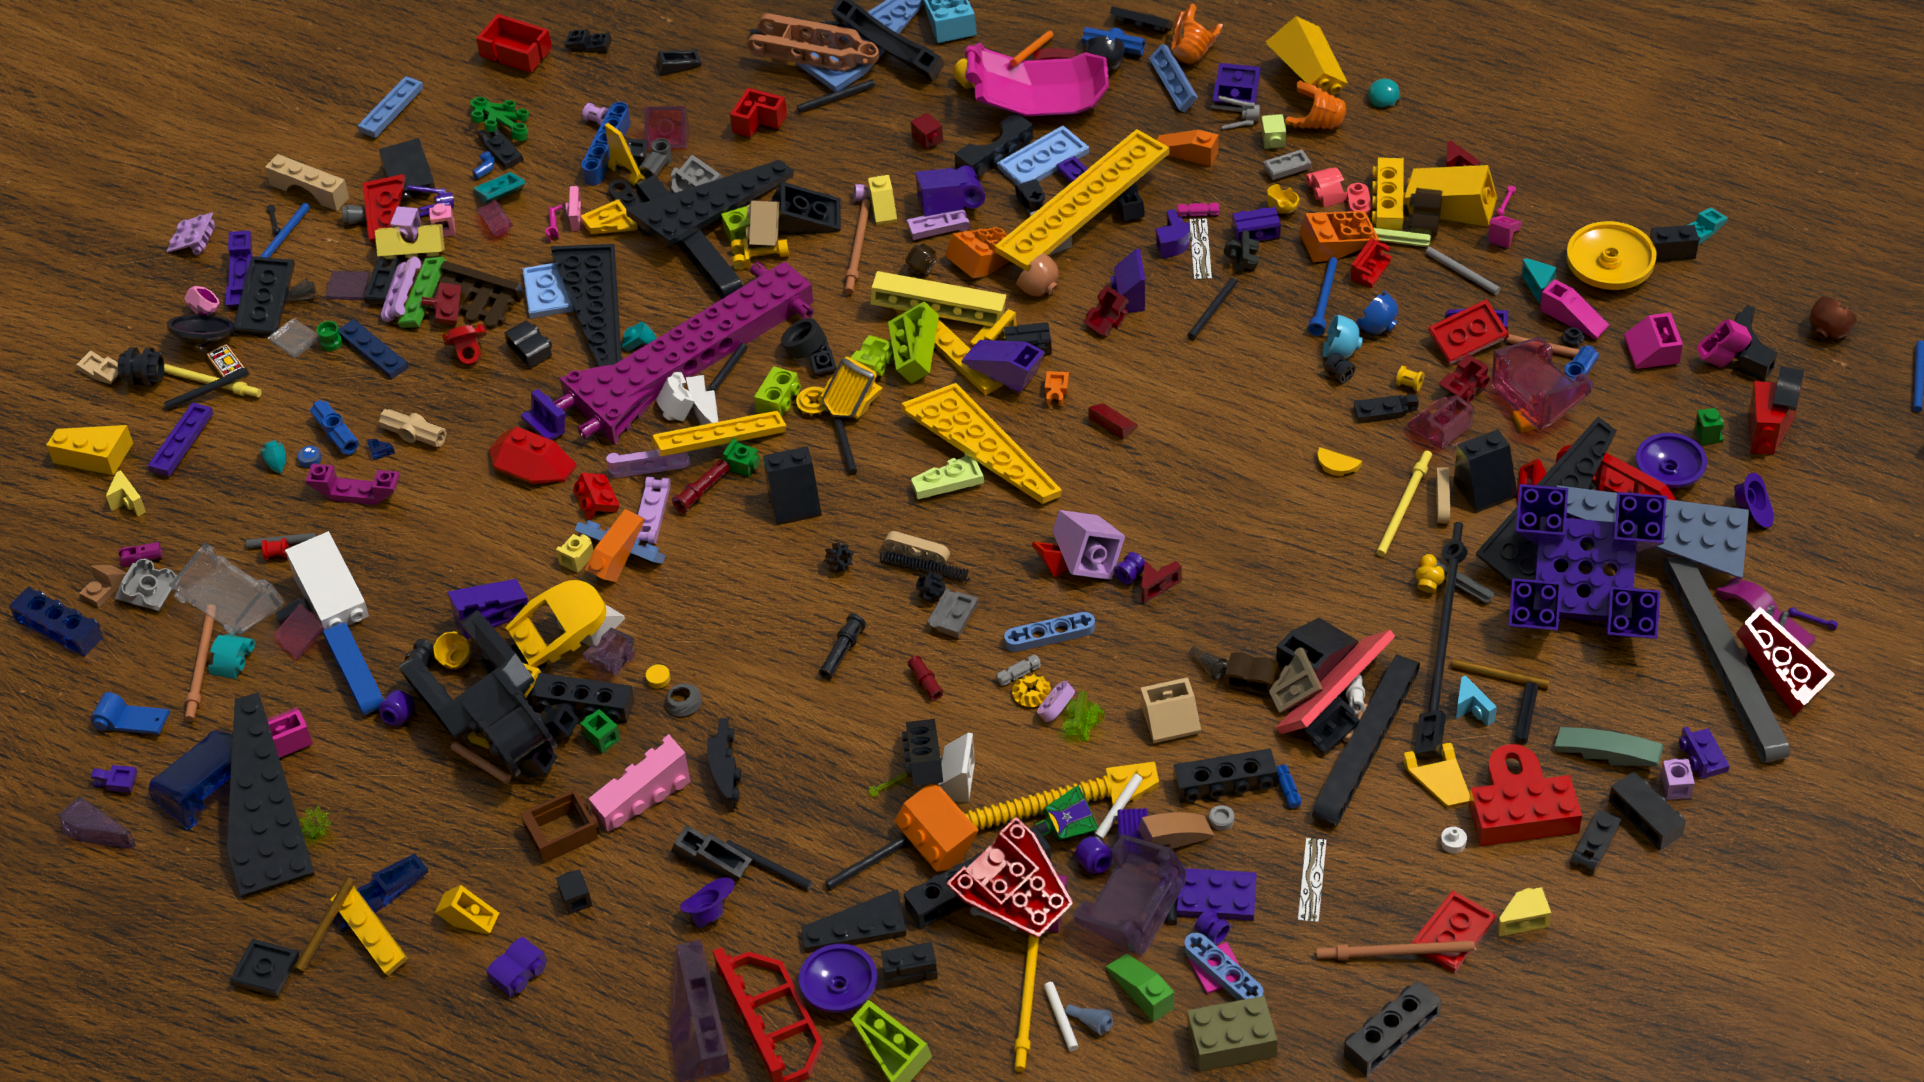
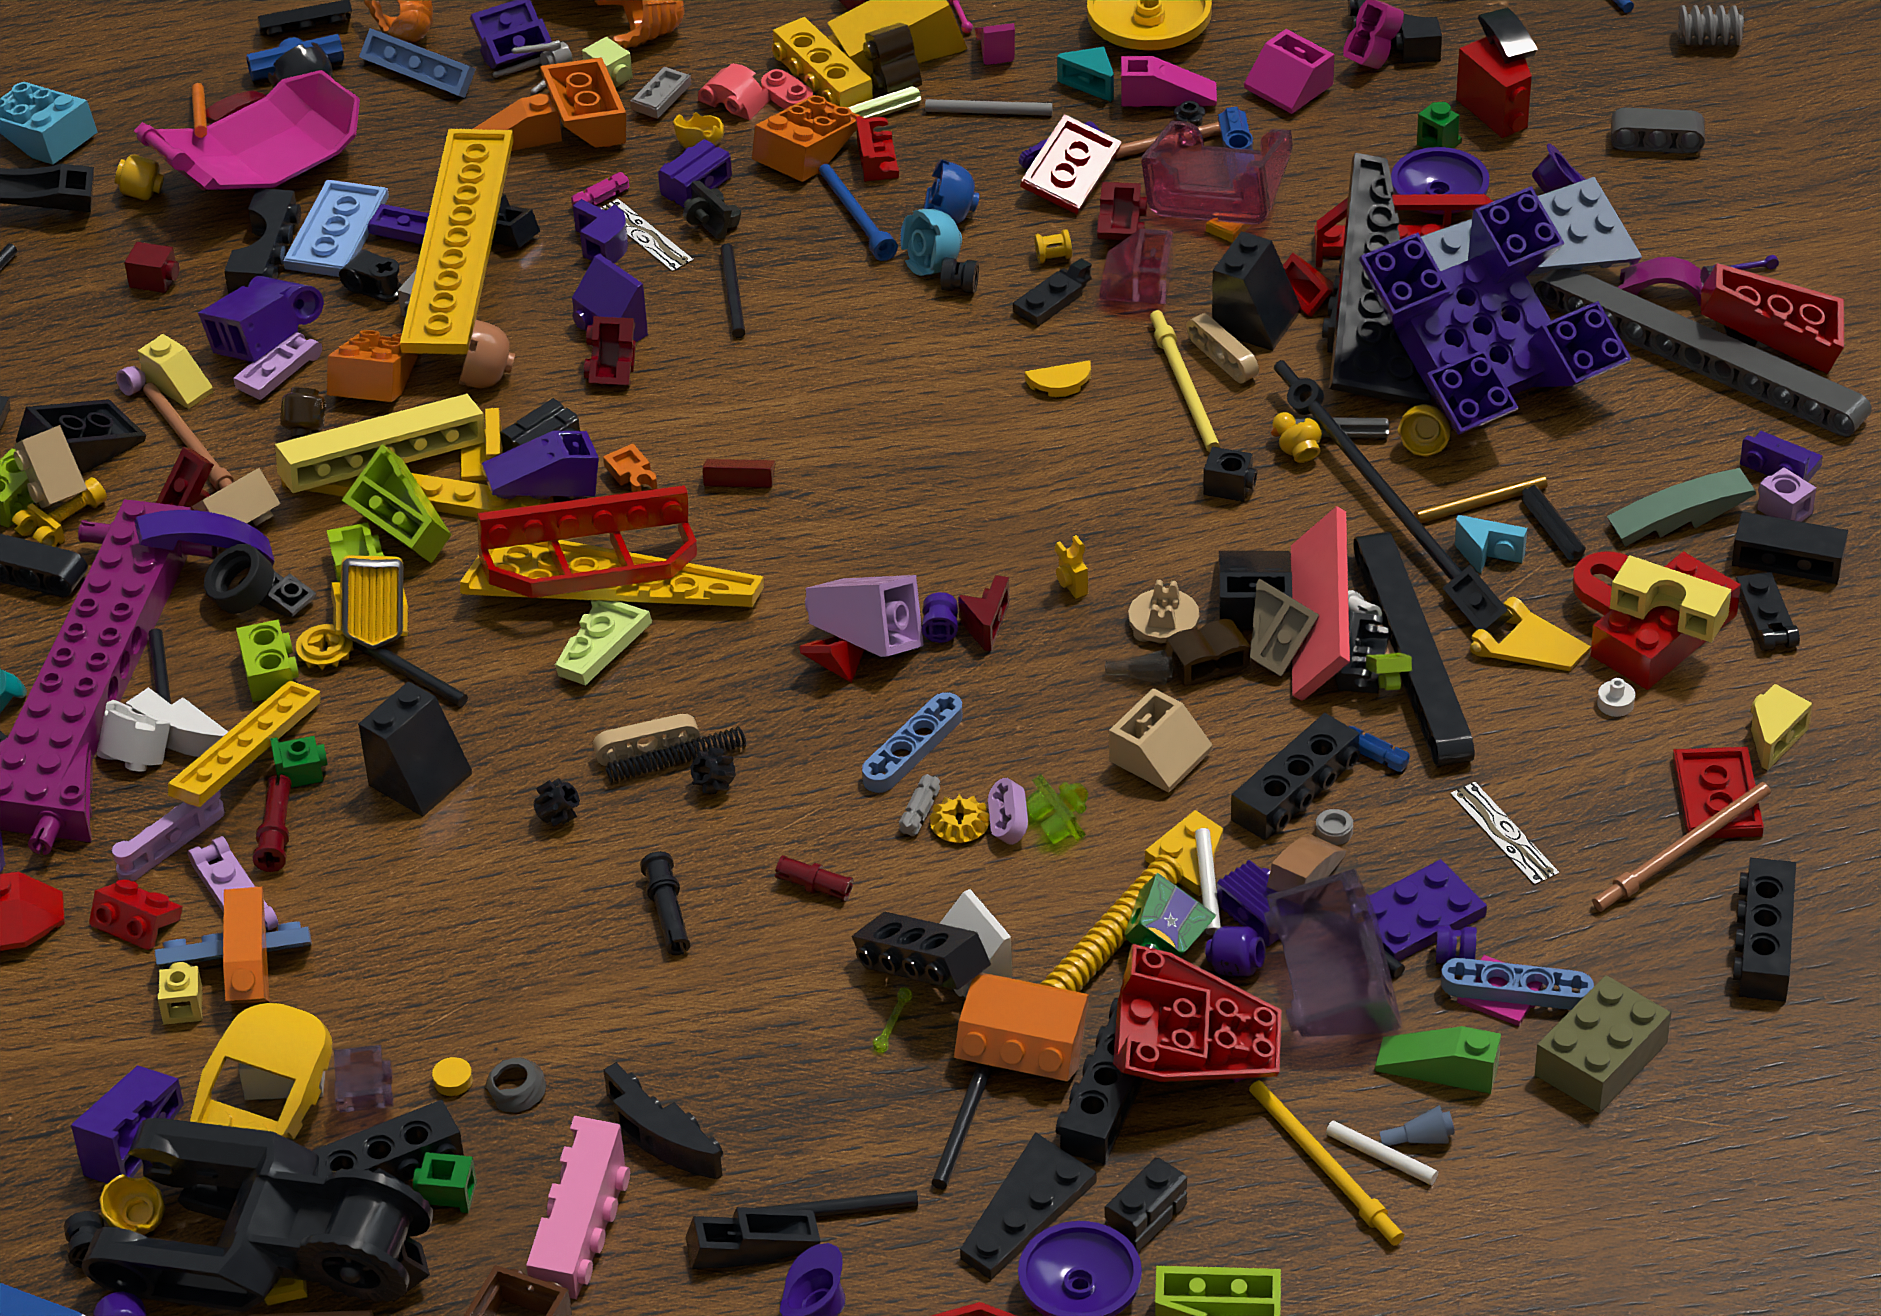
camera: 40 degrees left, 5 degrees down
(805, 302) = (167, 527): none -> dark purple slope
(827, 272) = (186, 480): none -> dark red slope
(839, 295) = (244, 499): none -> tan brick
(952, 613) = (770, 786): flat silver plate -> none
(974, 911) = (1216, 1088): light grey hinge -> none
(989, 402) = (581, 519): none -> red plate
(1223, 580) = (1071, 570): none -> yellow plate
(1233, 149) = (587, 101): none -> orange slope
(1252, 637) = (1162, 613): none -> tan plate
(1334, 743) = (1388, 668): none -> lime tile
(1368, 574) = (1229, 474): none -> black brick
(1500, 611) = (1424, 430): none -> yellow hair
(1513, 782) = (1647, 585): none -> light yellow arch
(1847, 500) = (1657, 130): none -> dark grey beam

